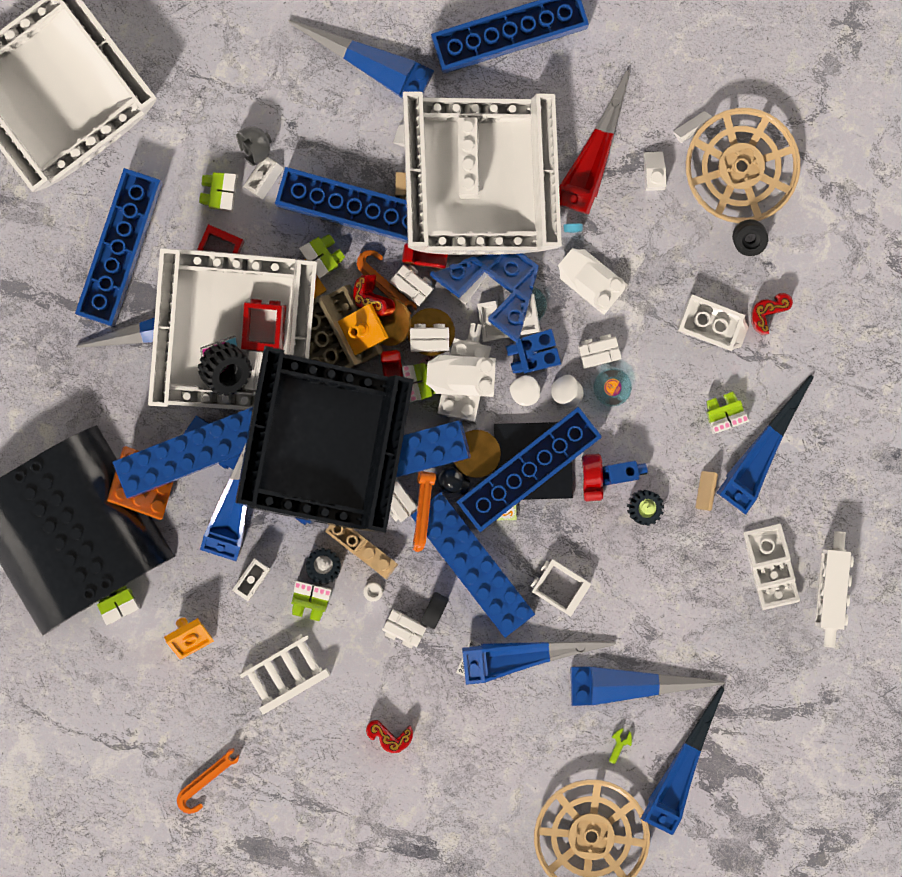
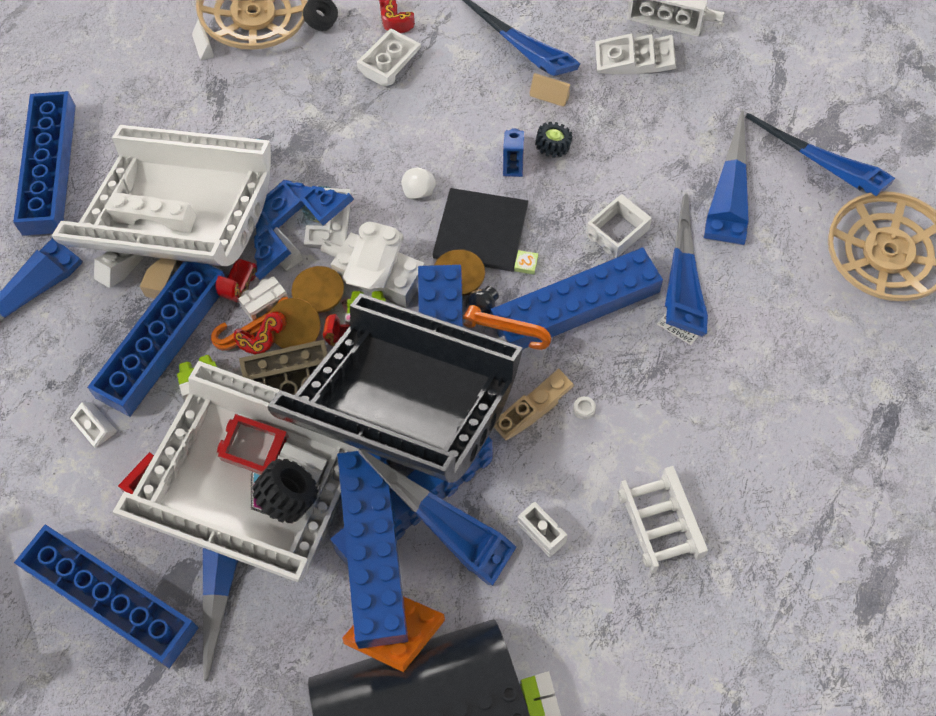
camera: 70 degrees left, 25 degrees down
(188, 637) = (596, 619): light orange tile -> none
(202, 780) = (777, 644): orange piece -> none
(216, 199) = (89, 467): hips -> none
(254, 143) = (51, 421): dark grey cylinder -> none
(302, 596) = (576, 471): lime hips -> none
(323, 566) = (544, 449): black wheel -> none
(363, 329) = (291, 344): light orange tile -> none
(387, 739) = (757, 425): red animal -> none
(404, 628) = (632, 381): white brick -> none
(429, 339) = (324, 285): white brick -> none
(434, 610) = (619, 344): black tyre -> none
(525, 390) = (407, 217): white hair -> none
(529, 469) = (489, 226): blue brick -> none
(530, 357) = (374, 209): blue hips -> none
(585, 176) = (193, 117): red plate -> none
(591, 279) = (317, 144): white slope -> none
(592, 477) = (512, 174): red animal -> none
(599, 352) = (387, 150): white brick -> none
(612, 387) = (426, 148): clear light blue tile -> none
(619, 745) = (791, 208): lime bar -> none
(654, 171) = (232, 75): white slope -> none
(733, 410) = (482, 62): lime hips -> none

